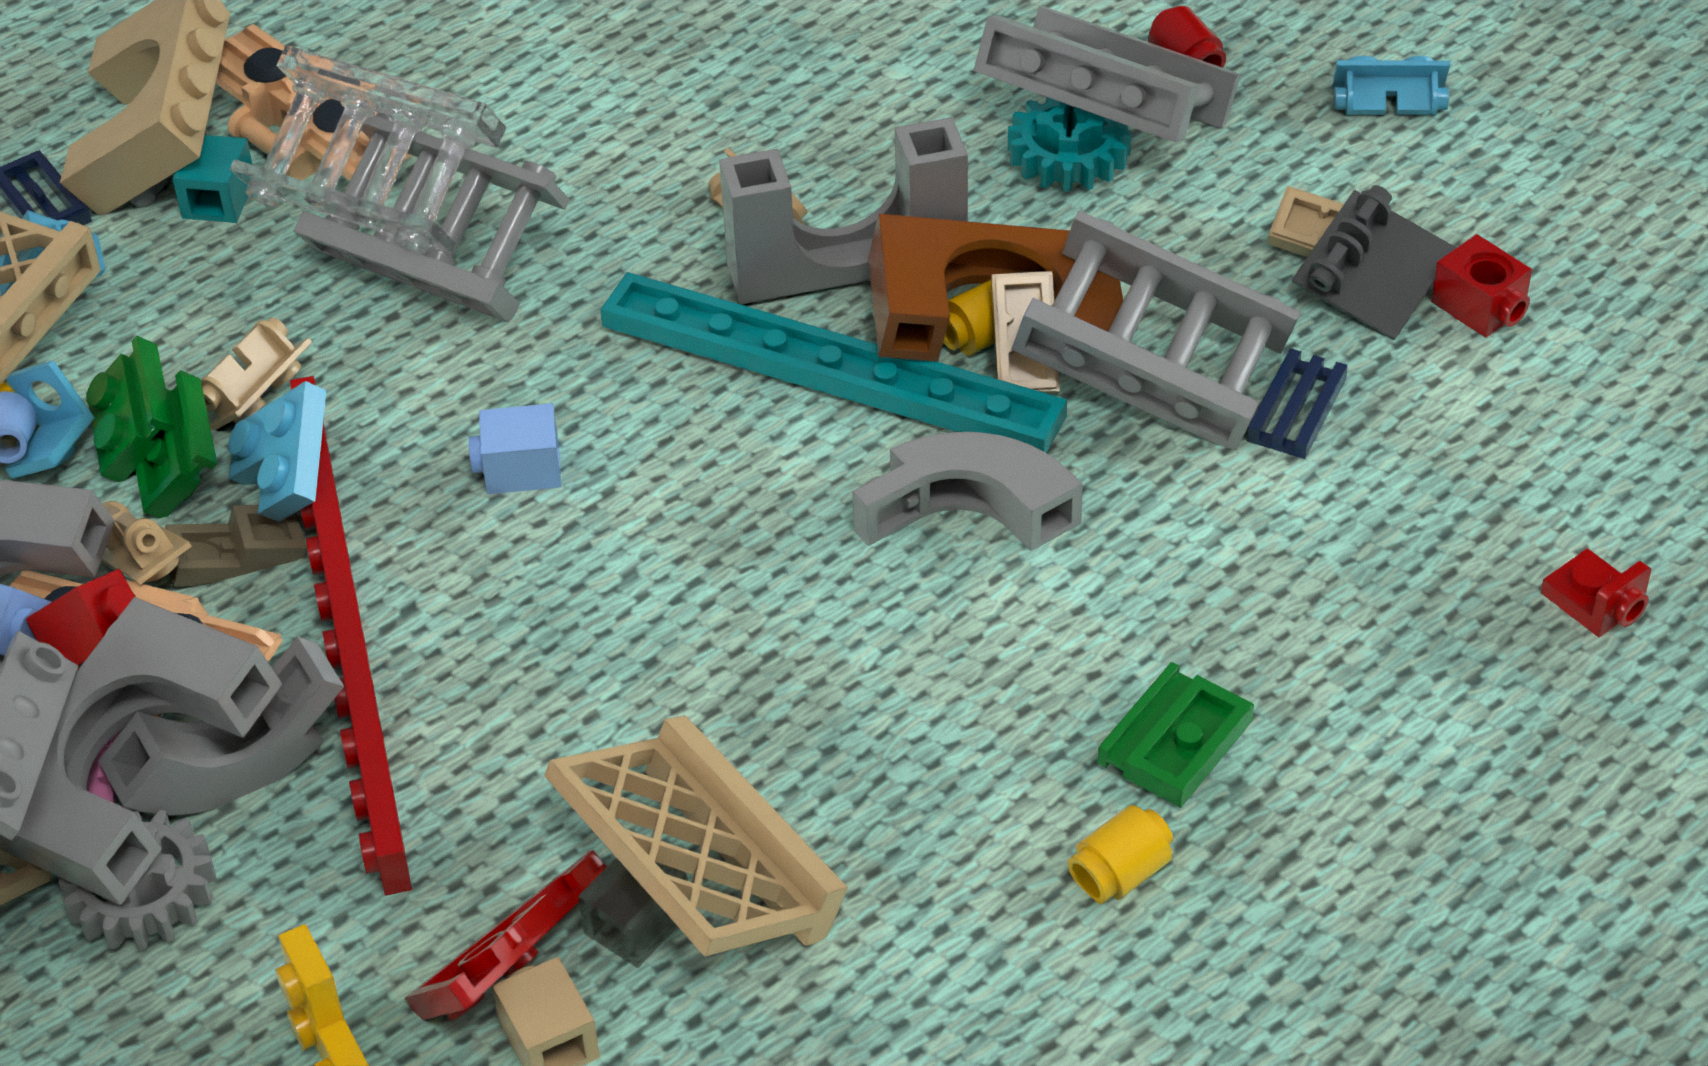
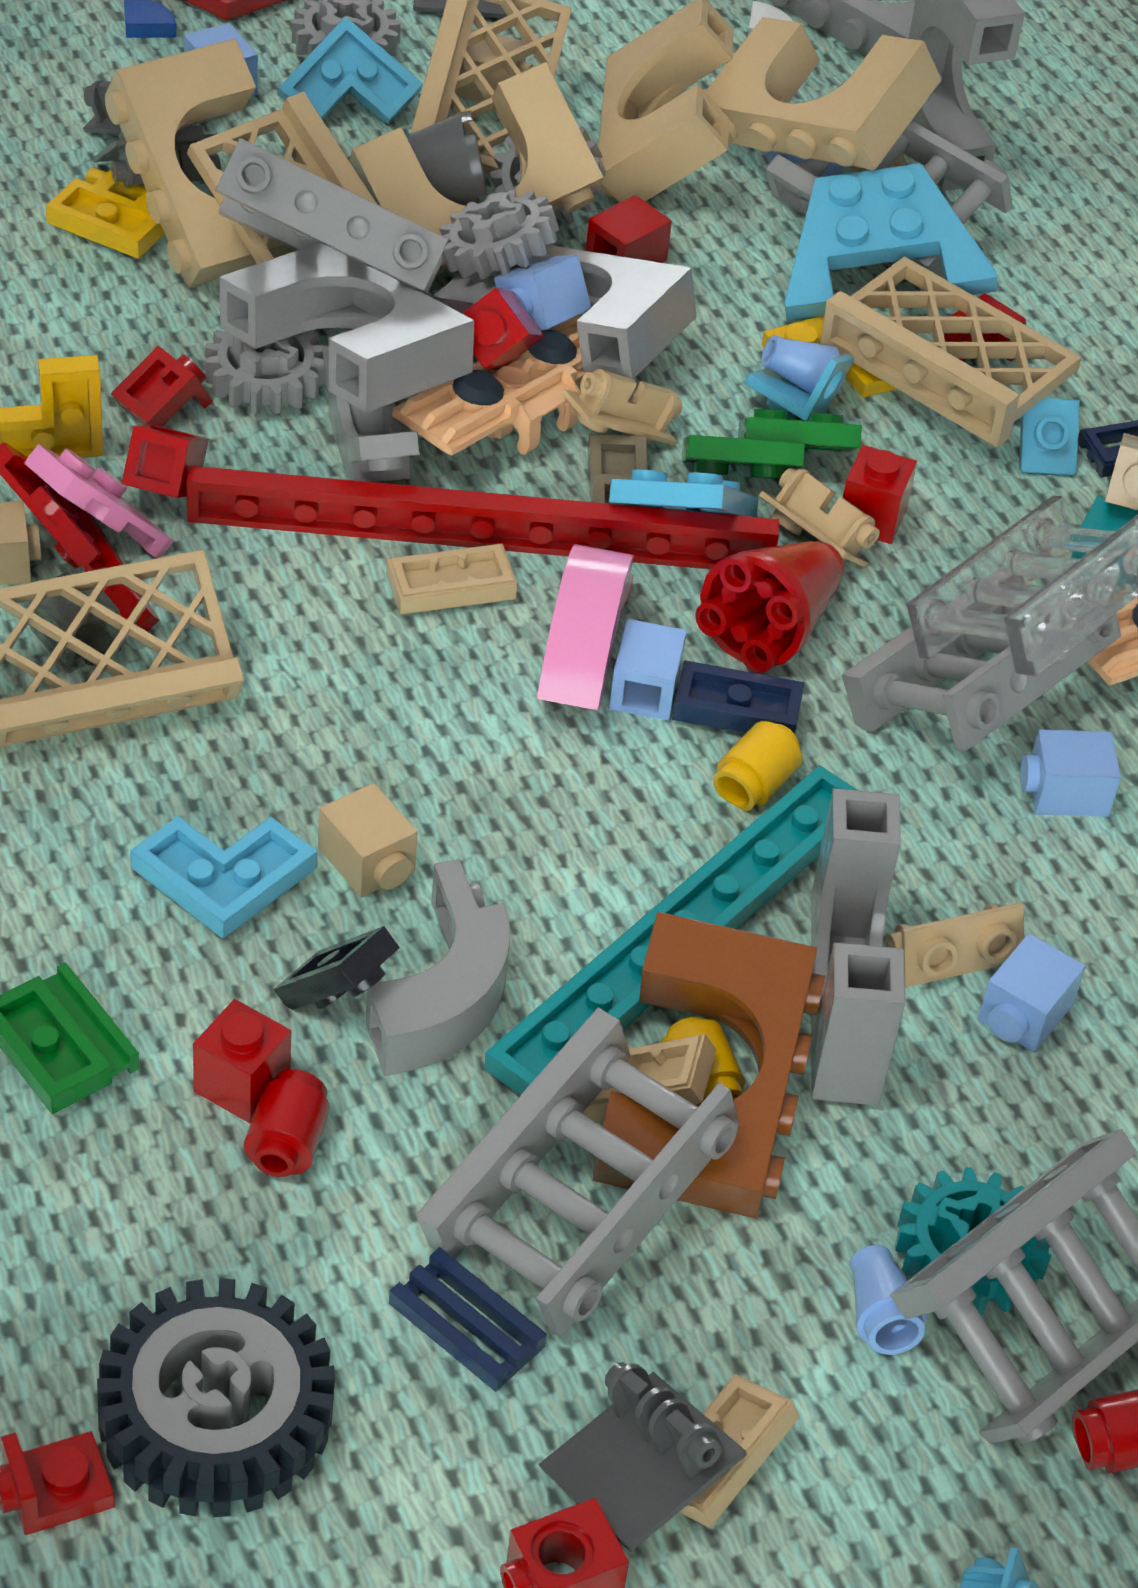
camera: 100 degrees right, 0 degrees up
(201, 332) = (881, 488): none -> red brick
(215, 961) = (161, 388): none -> red bracket
(361, 896) = (161, 459): none -> red brick
(396, 369) = (768, 600): none -> red cone
(438, 630) = (451, 578): none -> tan plate
(444, 941) = (98, 495): none -> bright pink wing
(486, 473) = (585, 626): none -> bright pink arch
(529, 373) = (735, 698): none -> dark blue plate
(541, 143) = (1071, 773): none -> light blue brick
(610, 354) = (758, 765): none -> yellow brick
(809, 145) = (1031, 993): none -> light blue brick
(836, 584) = (367, 840): none -> tan brick
(931, 679) = (218, 884): none -> medium azure plate
(1020, 541) = (338, 969): none -> black plate
(1143, 587) = (239, 1058): none -> red brick
(1150, 178) = (877, 1315): none -> light blue cone
(1186, 547) = (287, 1123): none -> red brick
(1512, 528) = (188, 1441): none -> wheel

